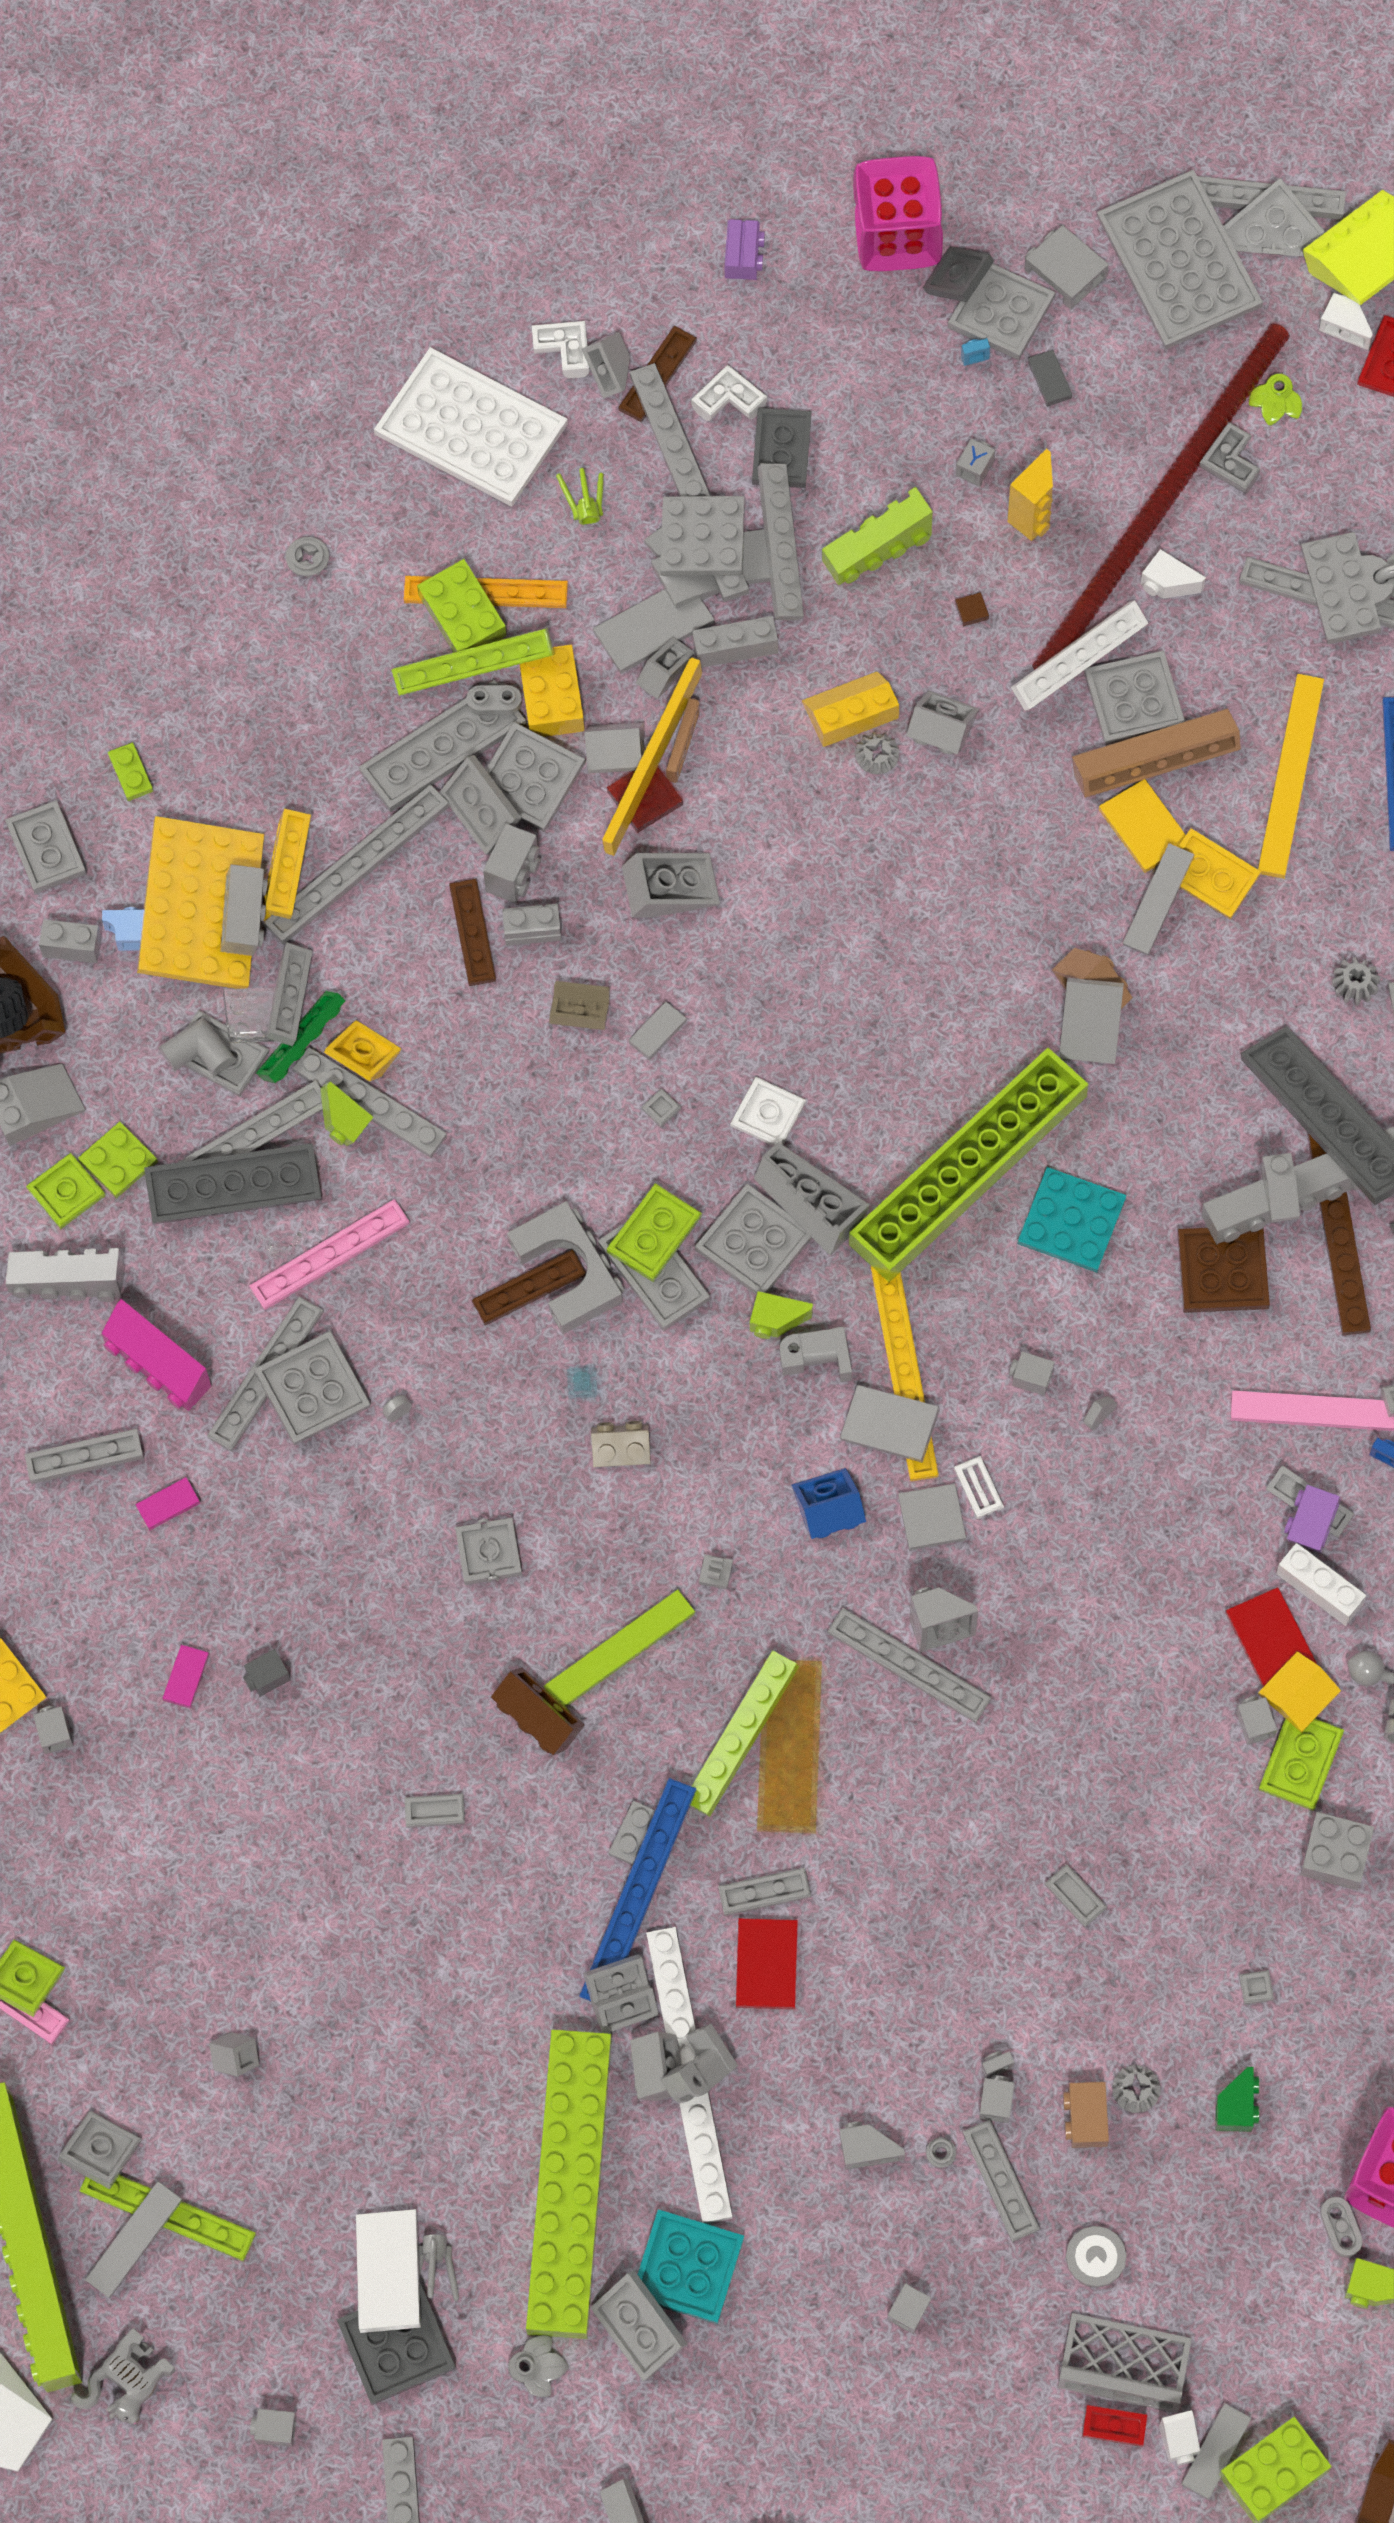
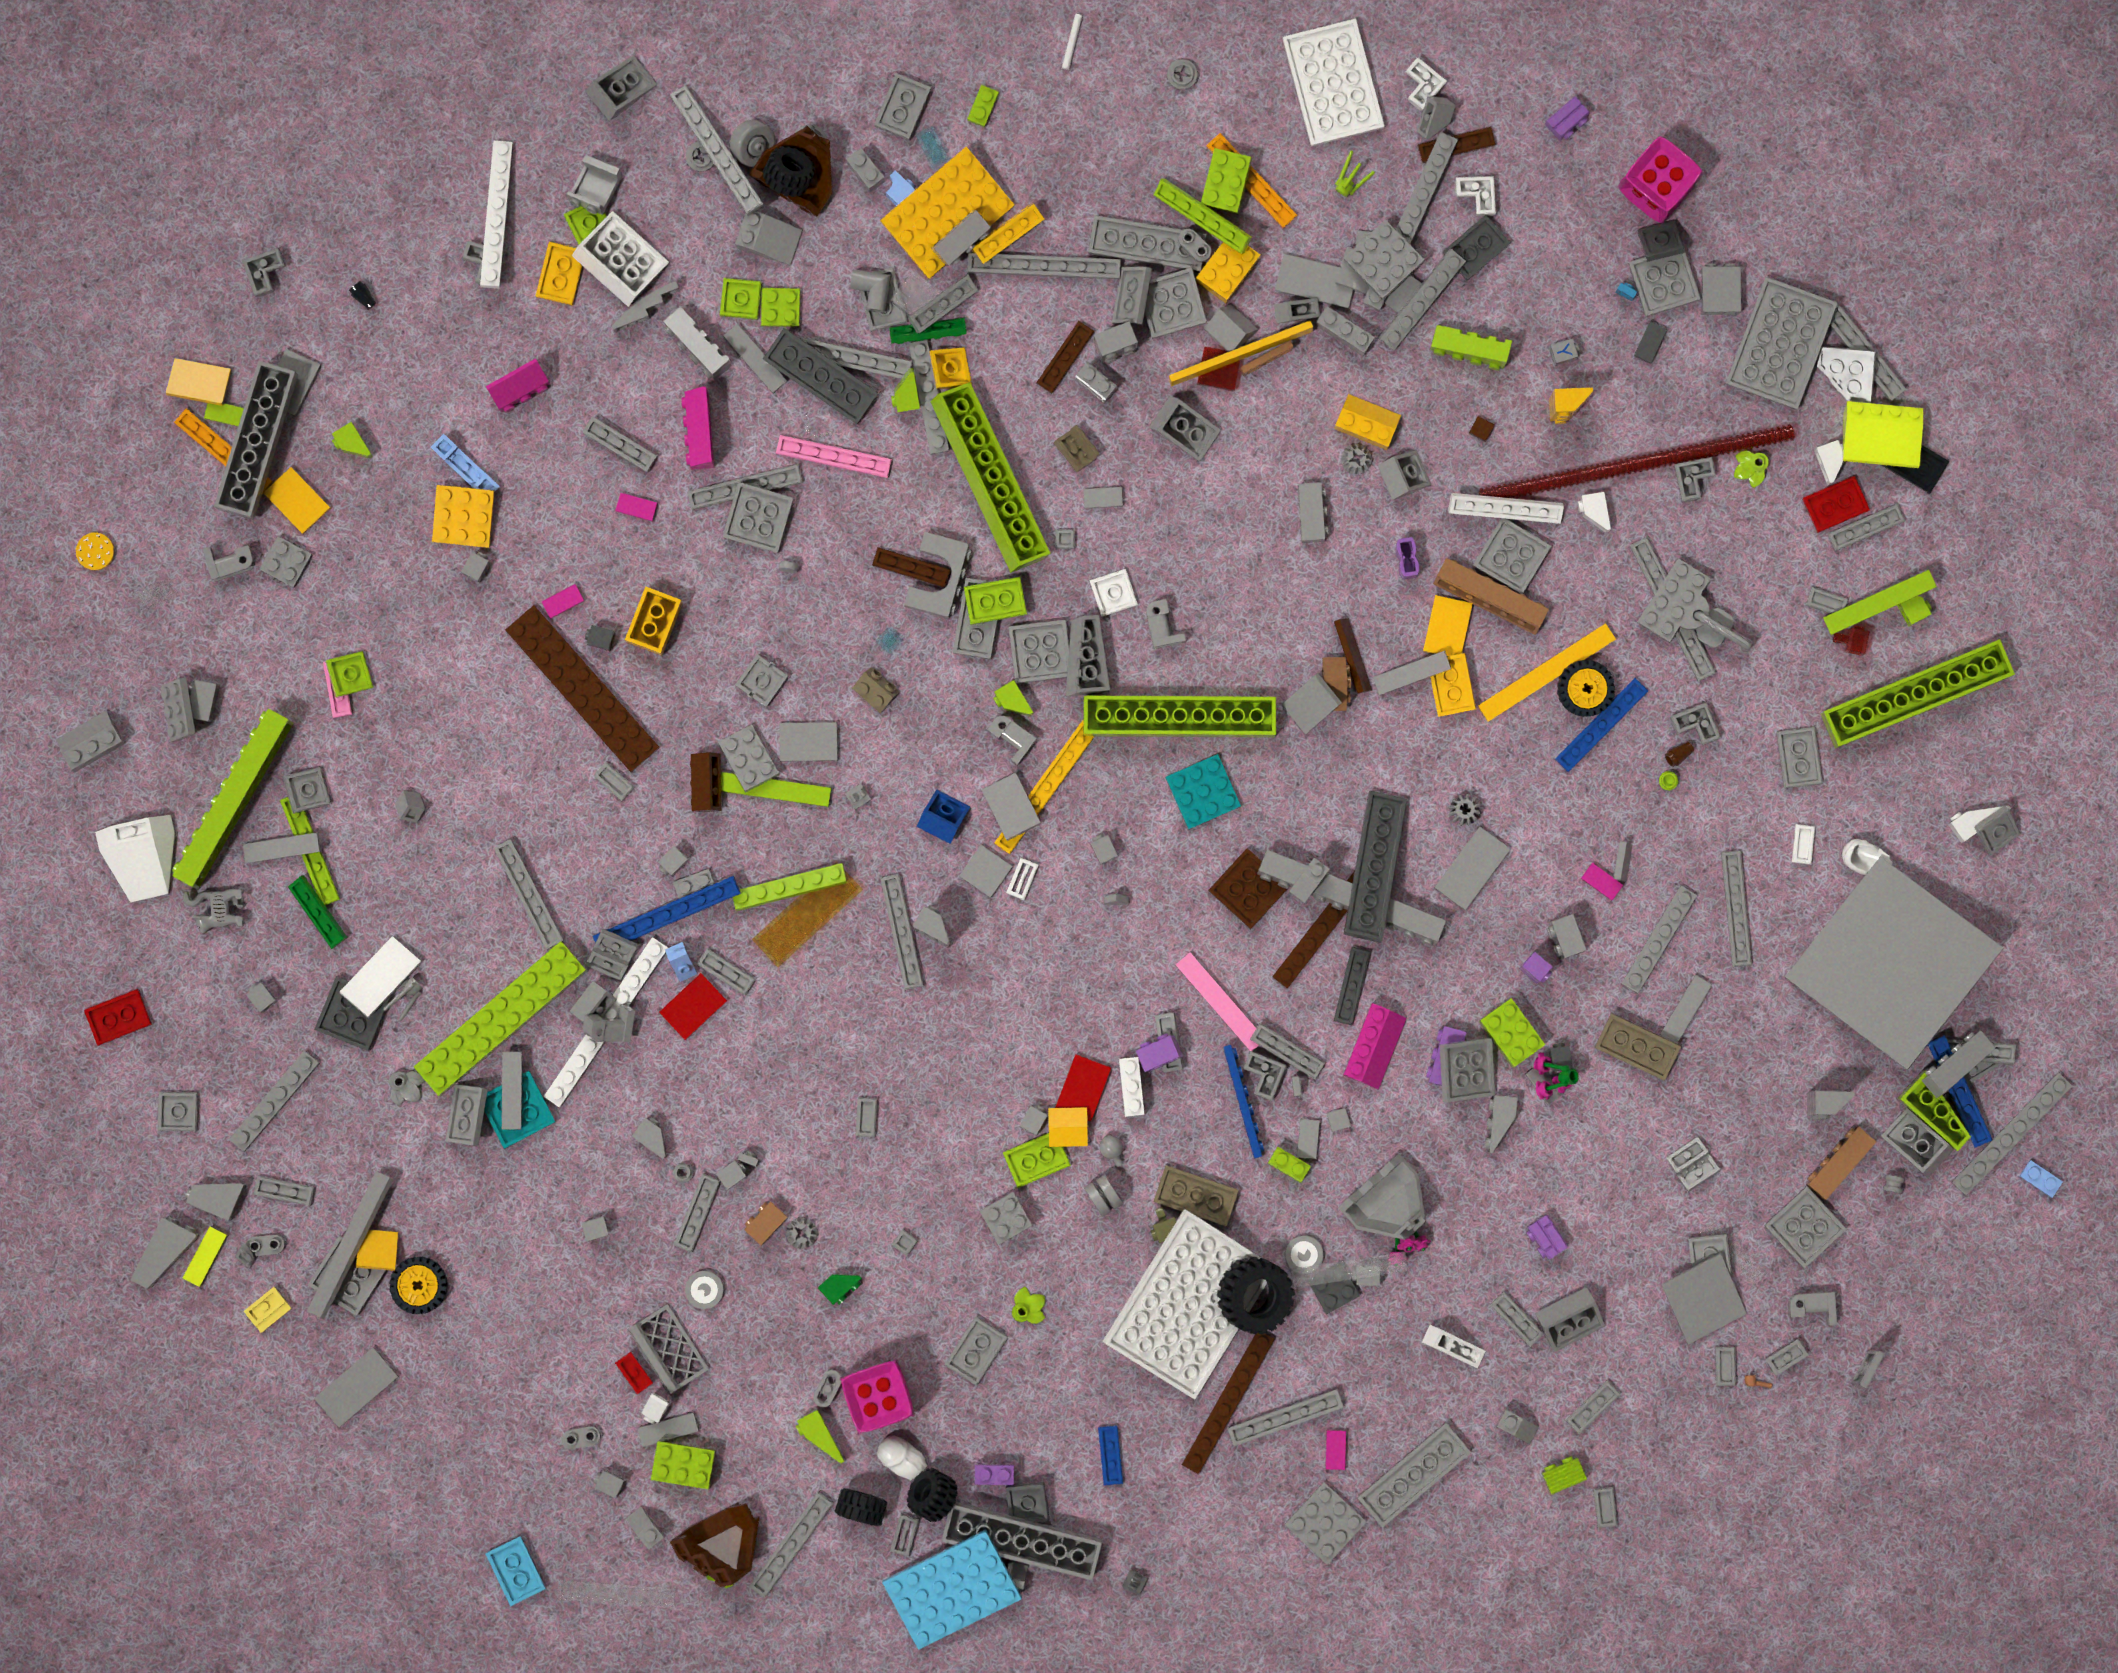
camera: 40 degrees right, 15 degrees up
(118, 859) = (932, 147): none -> clear light blue plate
(143, 1235) = (754, 358): none -> light grey tile
(160, 629) = (1072, 41): none -> white bar
(244, 2271) = (317, 912): none -> green tile
(300, 1746) = (582, 688): none -> reddish brown plate
(308, 1598) = (653, 621): none -> yellow brick
(463, 2020) = (528, 894): none -> light grey plate
(520, 1114) = (990, 477): none -> lime brick
(557, 1644) = (748, 758): none -> light grey plate
(586, 1830) = (672, 861): none -> light grey brick
(604, 1566) = (808, 741): none -> light grey tile
(662, 2248) = (511, 1090): none -> light grey tile
(705, 1925) = (680, 962): none -> light blue brick
(851, 1099) = (1159, 626): none -> light grey piece
(889, 843) = (1312, 512): none -> light grey brick
(1030, 793) = (1408, 563): none -> medium lavender brick
(1079, 939) = (1352, 655): none -> reddish brown tile
(1345, 769) = (1572, 682): none -> wheel

